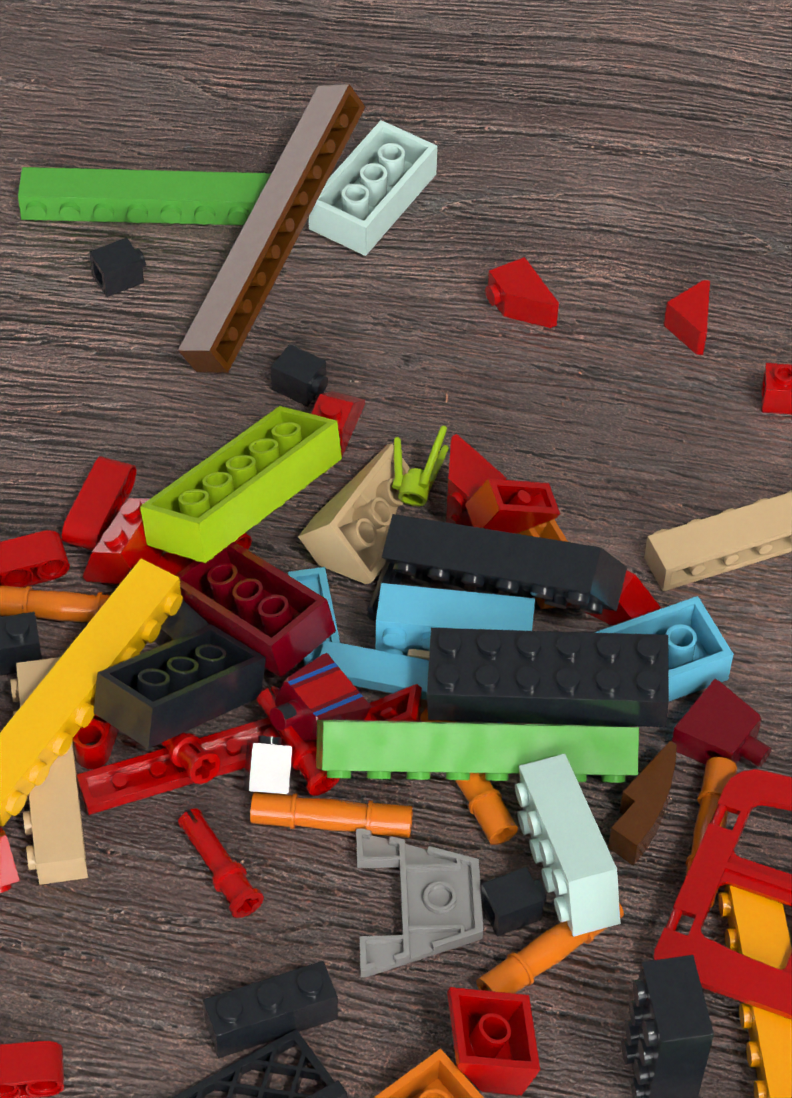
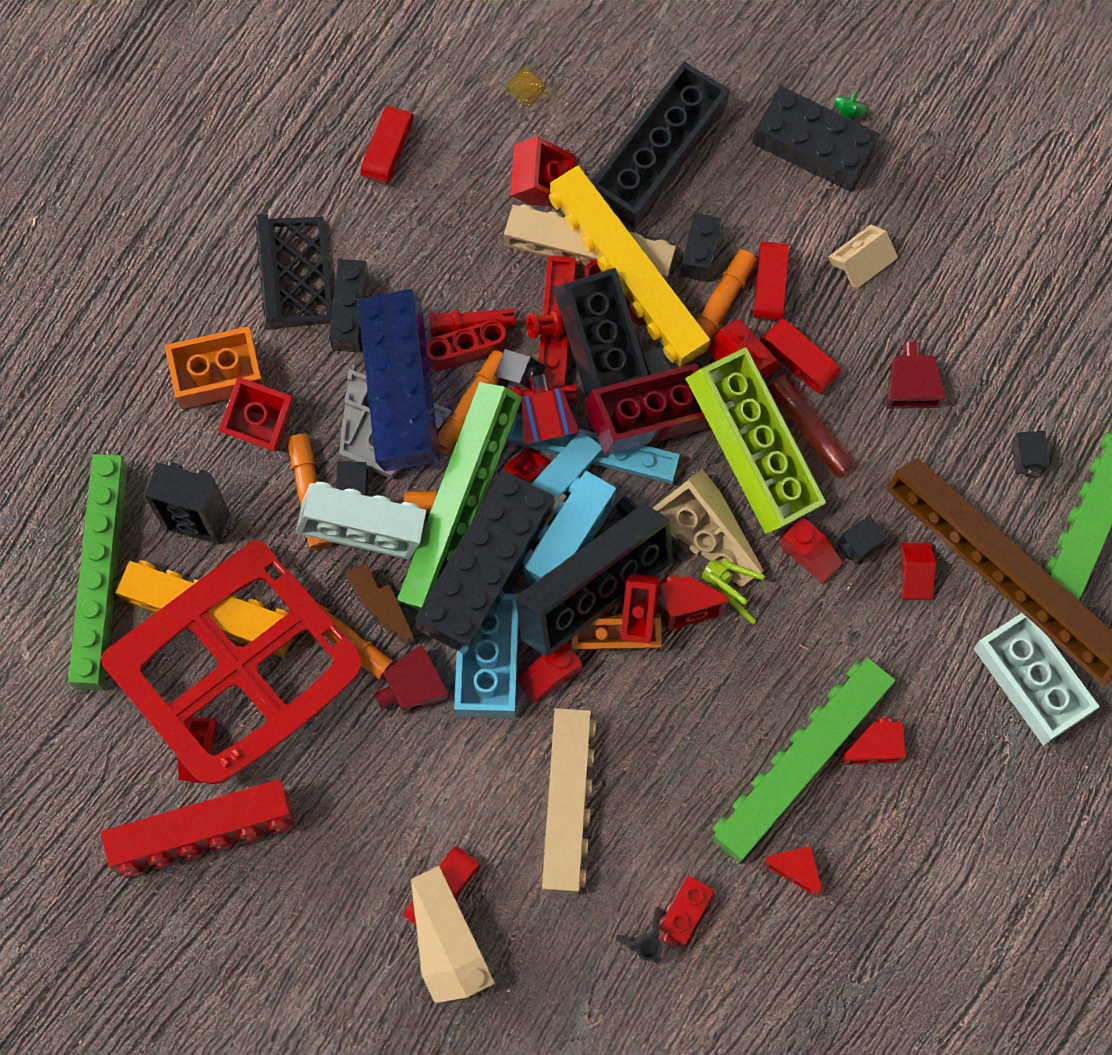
camera: 115 degrees right, 20 degrees up
(79, 390) = (914, 380): none -> dark red torso
(200, 445) = (810, 426): none -> clear red piece
(261, 867) = (475, 335): none -> red beam
(302, 322) = (917, 570): none -> red slope
(355, 883) = (398, 380): none -> clear blue brick
(576, 347) = (803, 760): none -> bright green brick

